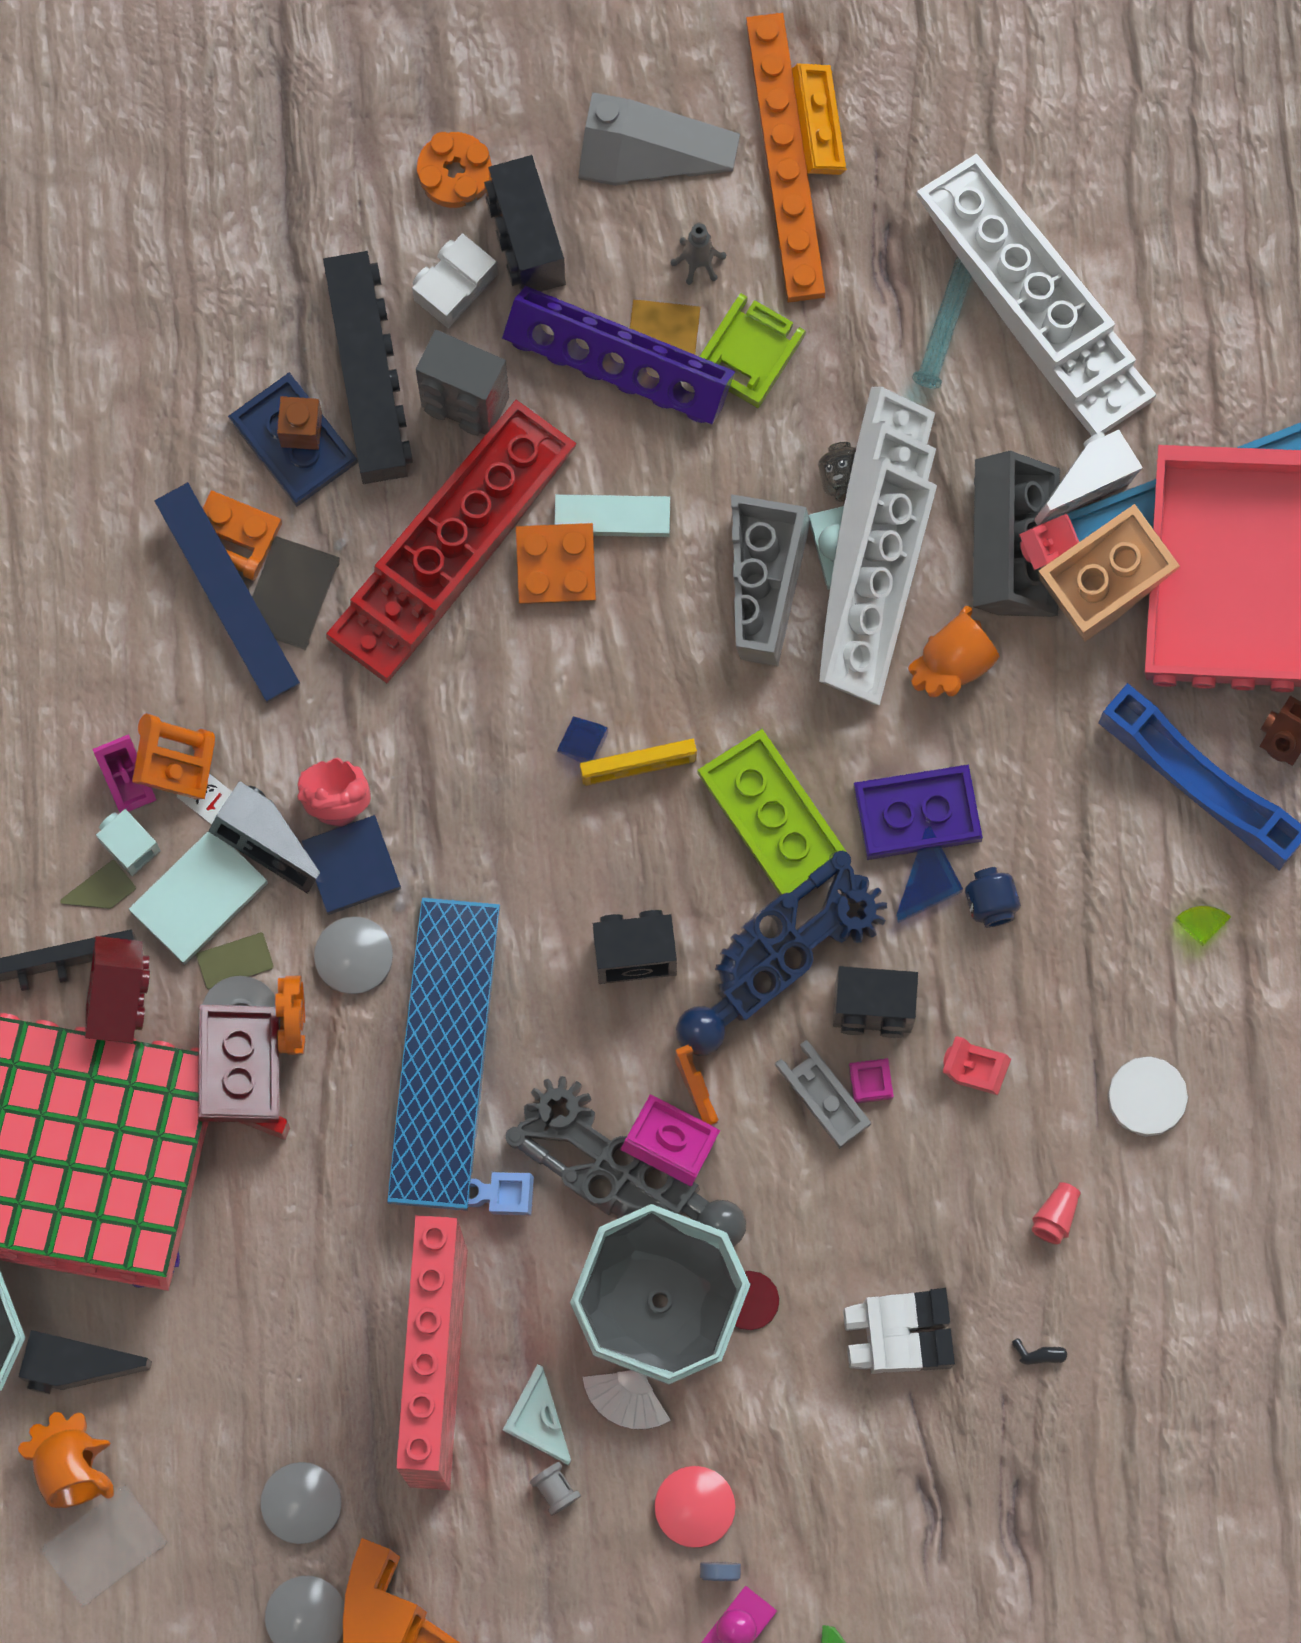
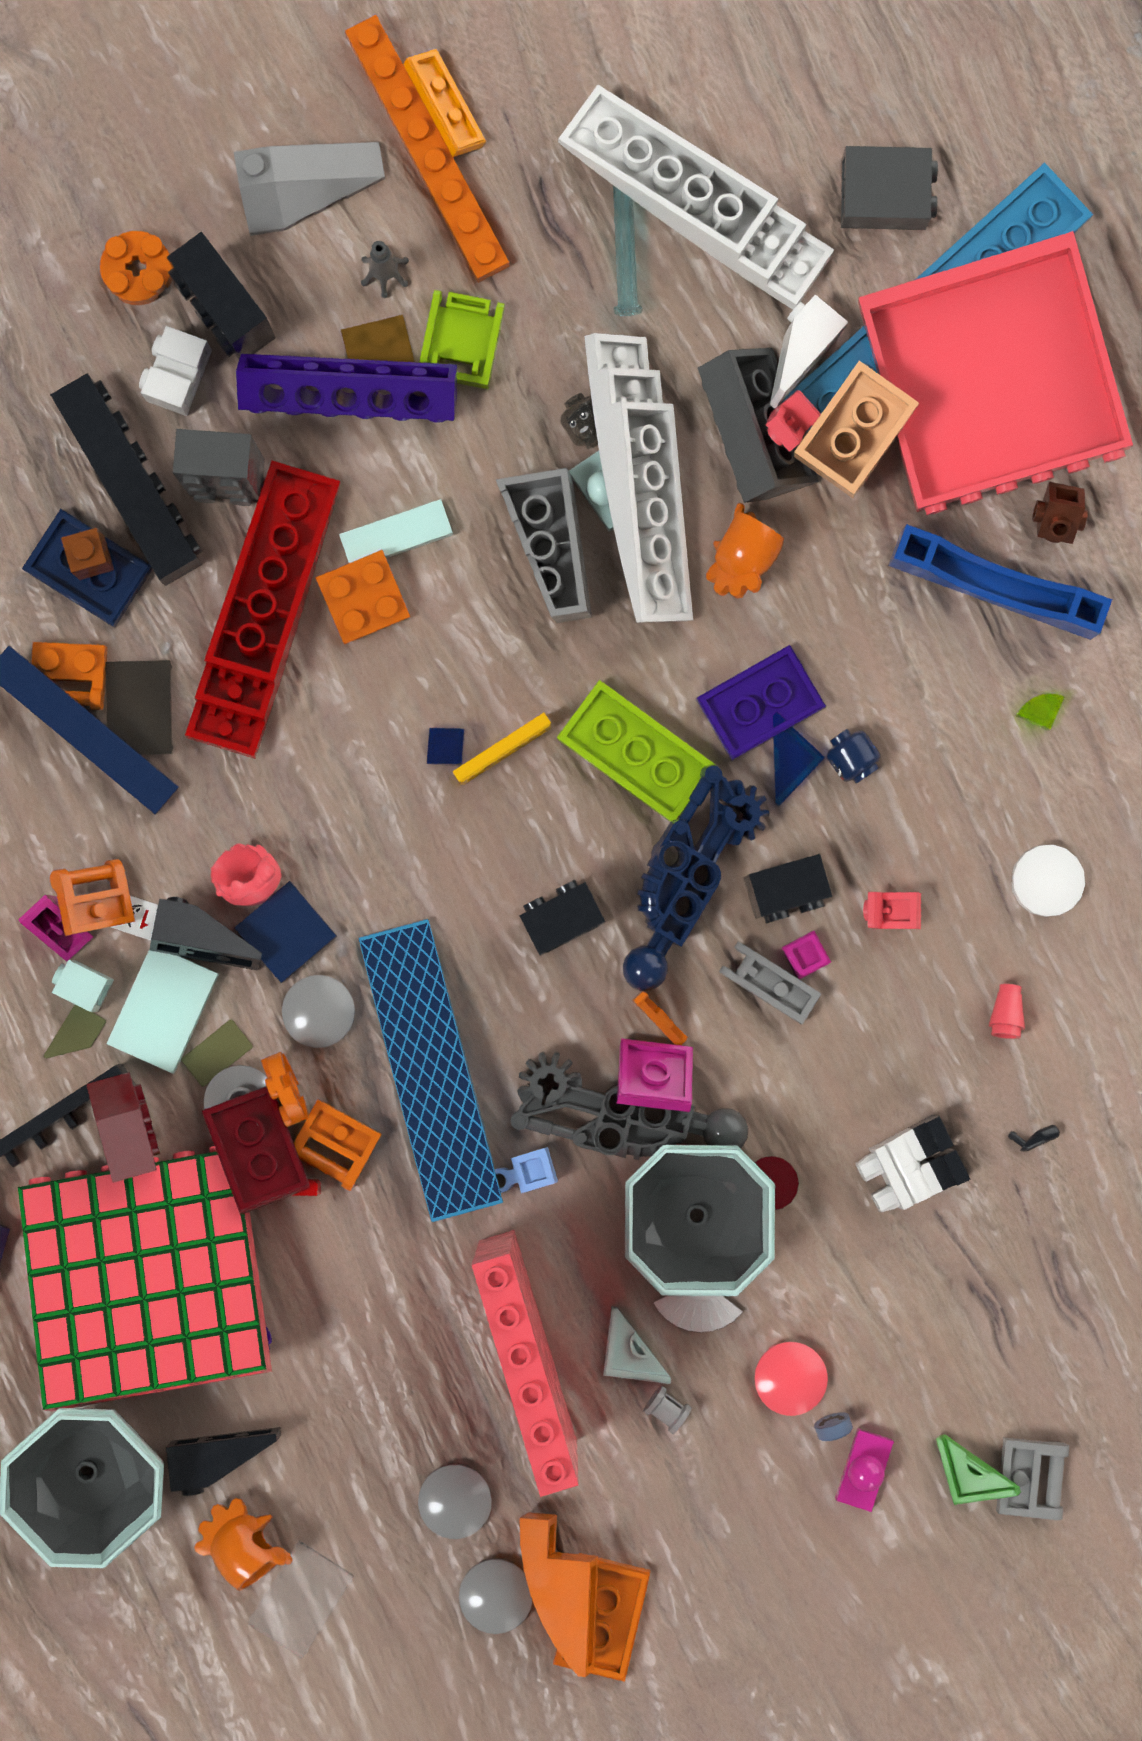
camera: 25 degrees left, 10 degrees up
(330, 1087) = (340, 1134): none -> orange plate
(1232, 354) = (887, 188): none -> dark grey brick

